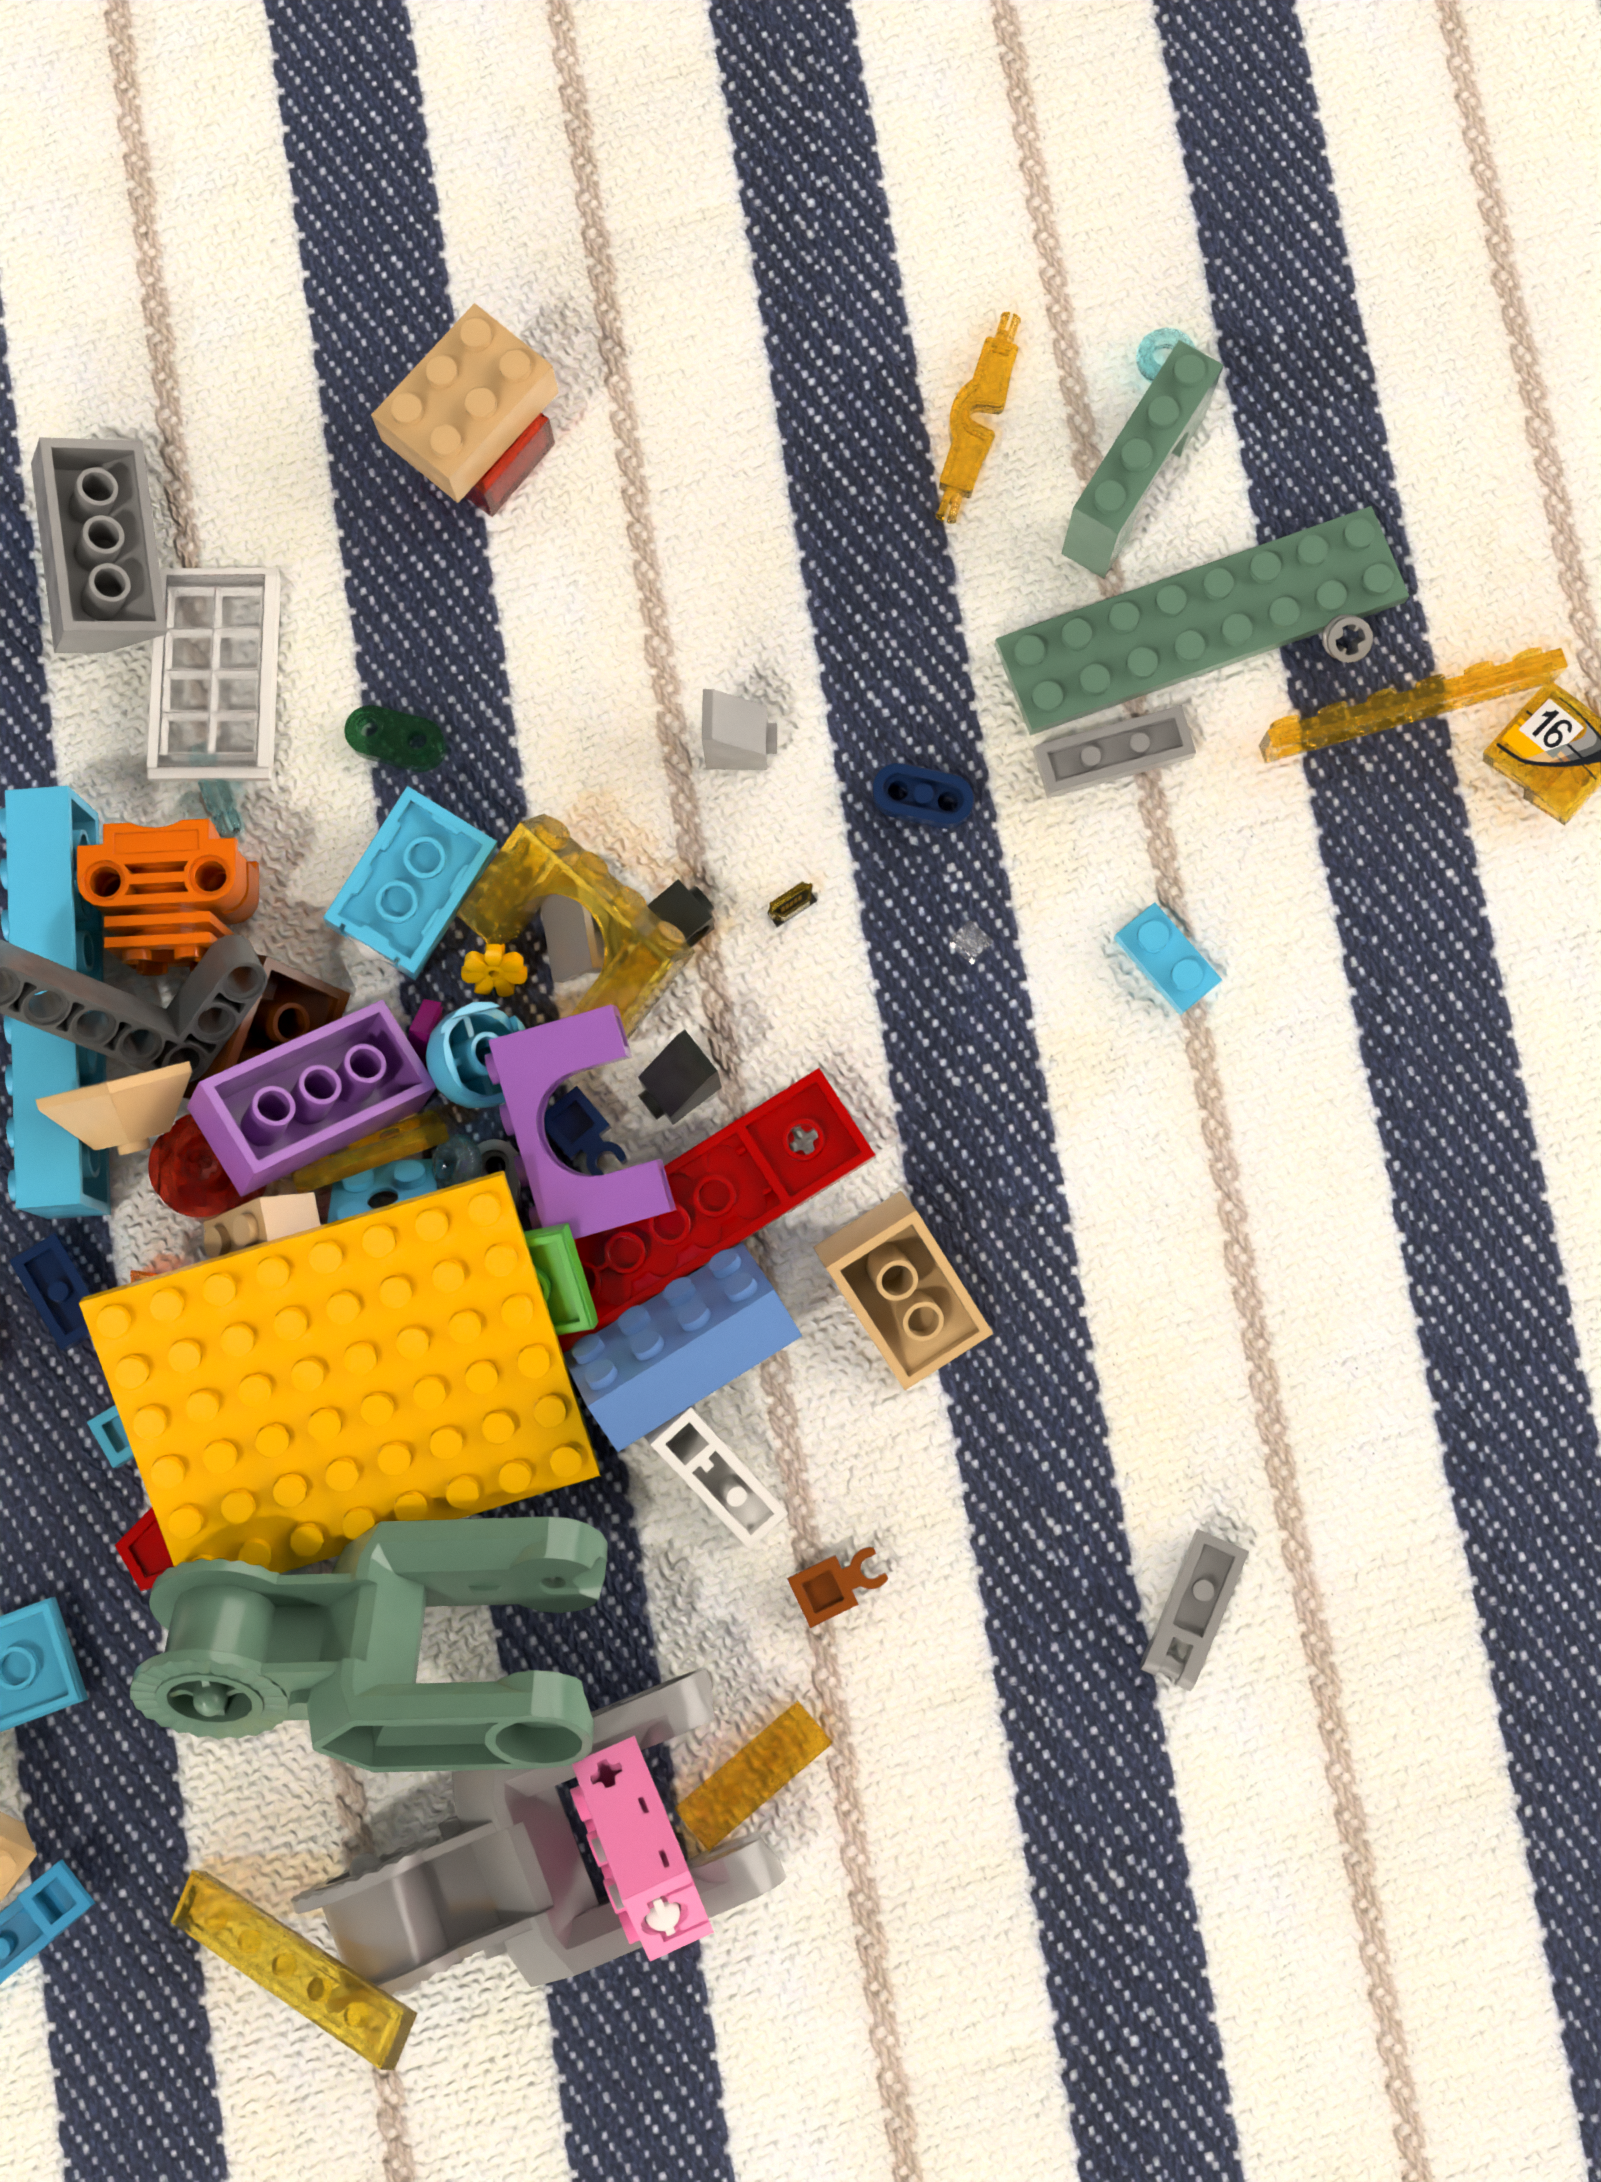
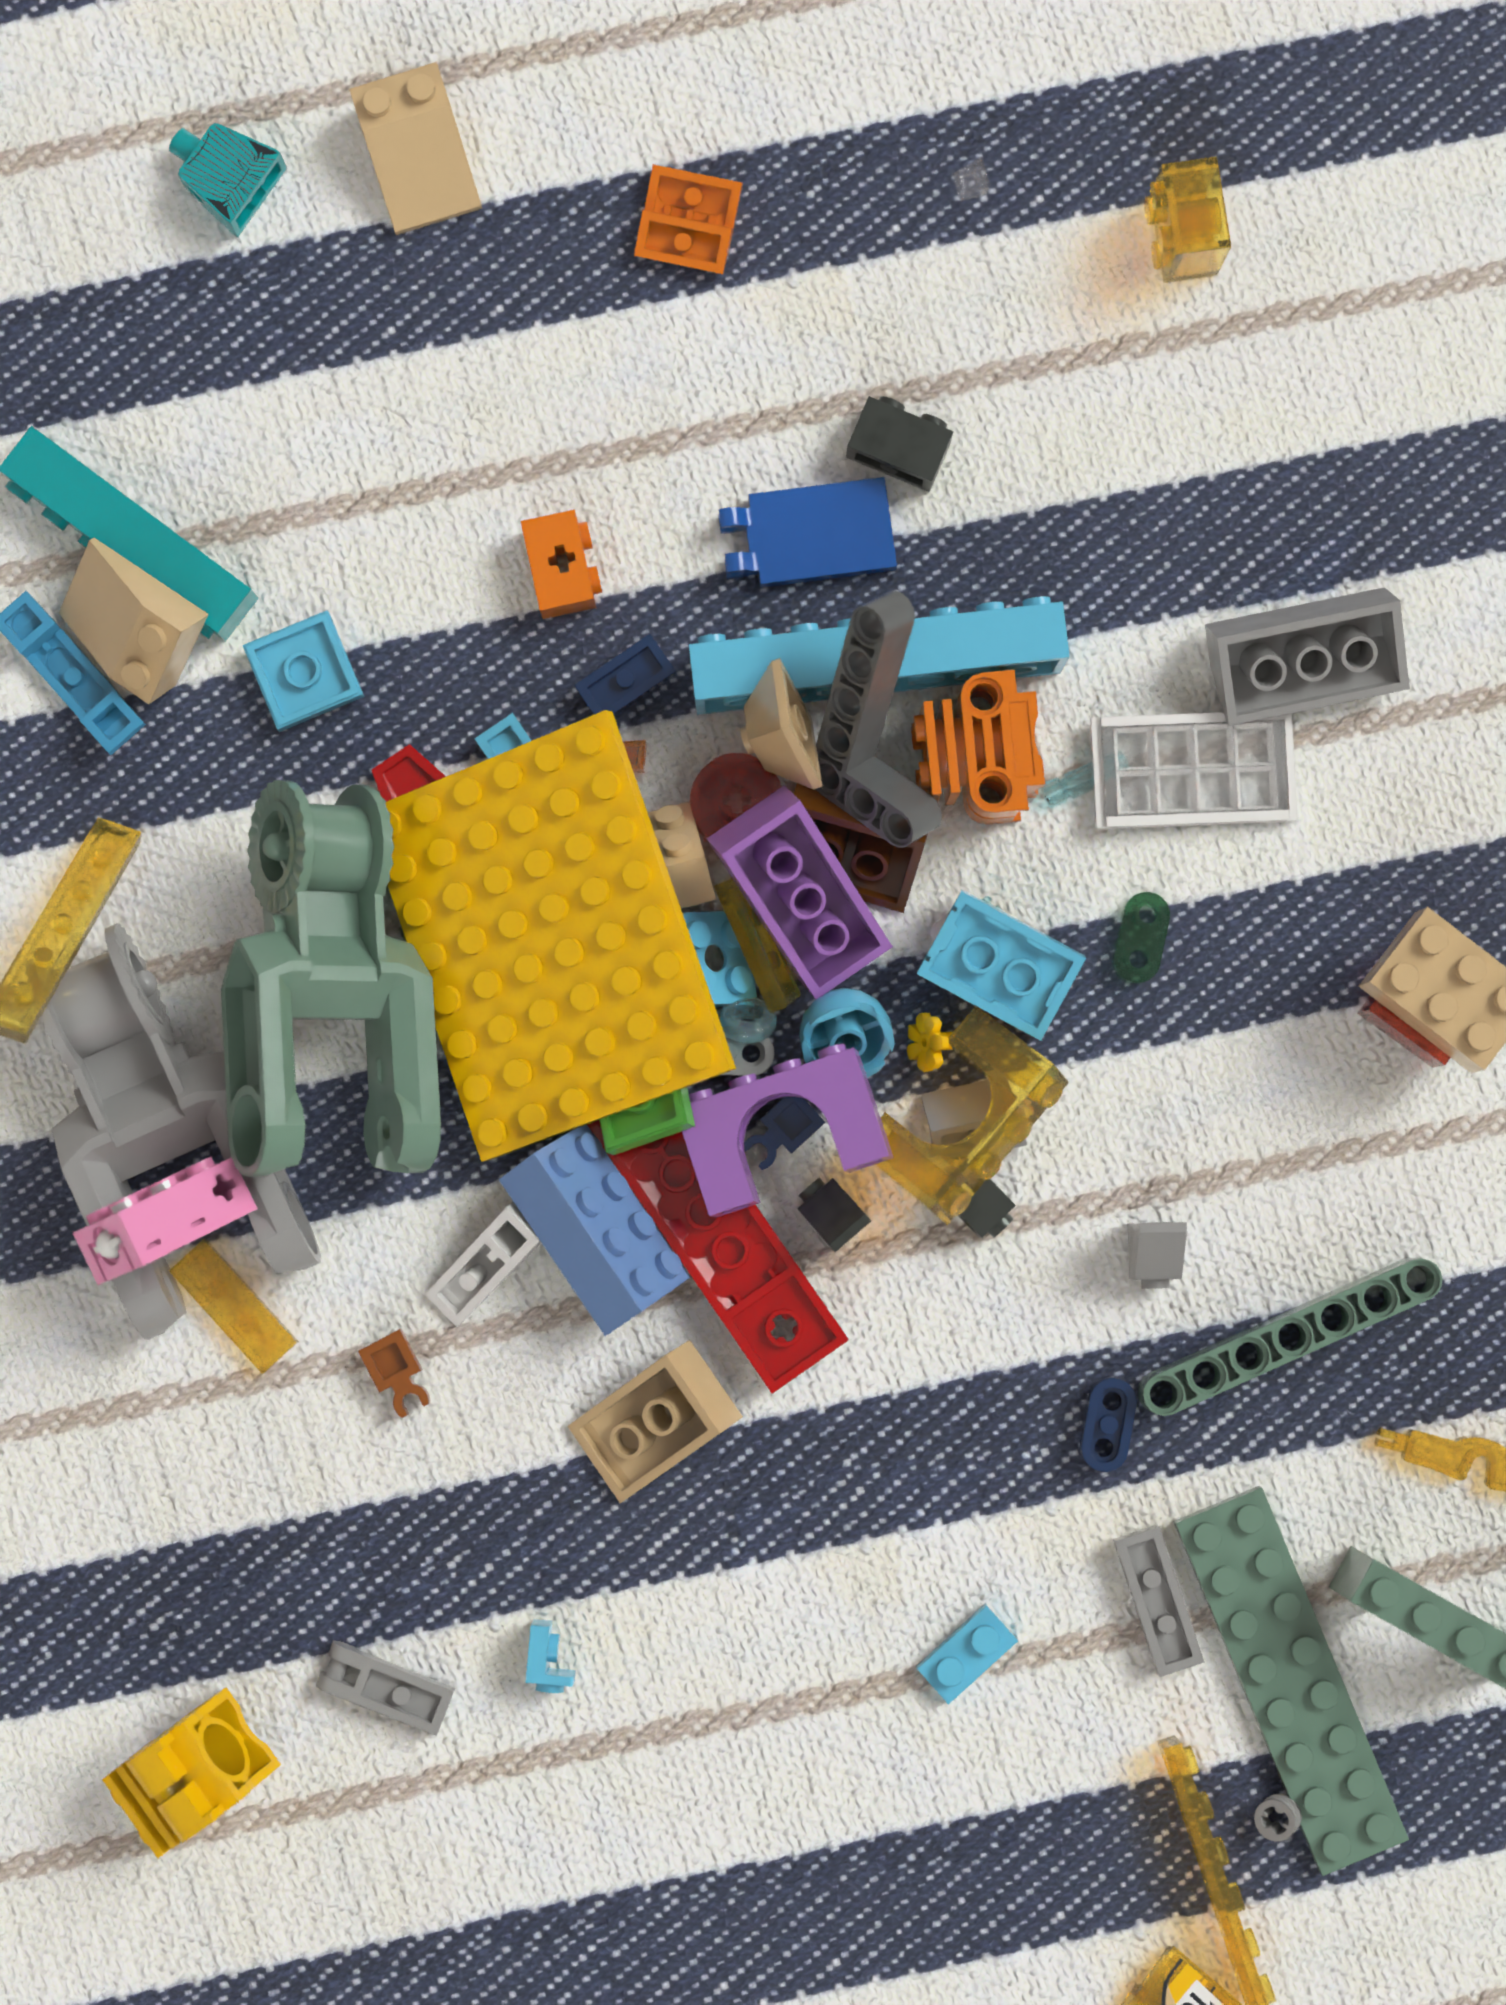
camera: 85 degrees right, 5 degrees up
(423, 1024) = (872, 983): magenta tile -> none
(791, 903) = (1002, 1307): clear yellow piece -> none
(832, 578) = (1312, 1334): none -> sand green beam
(970, 942) = (975, 1473): clear piece -> none
(1154, 1426) = (542, 1650): none -> medium azure bracket
(1289, 1839) = (191, 1773): none -> yellow piece

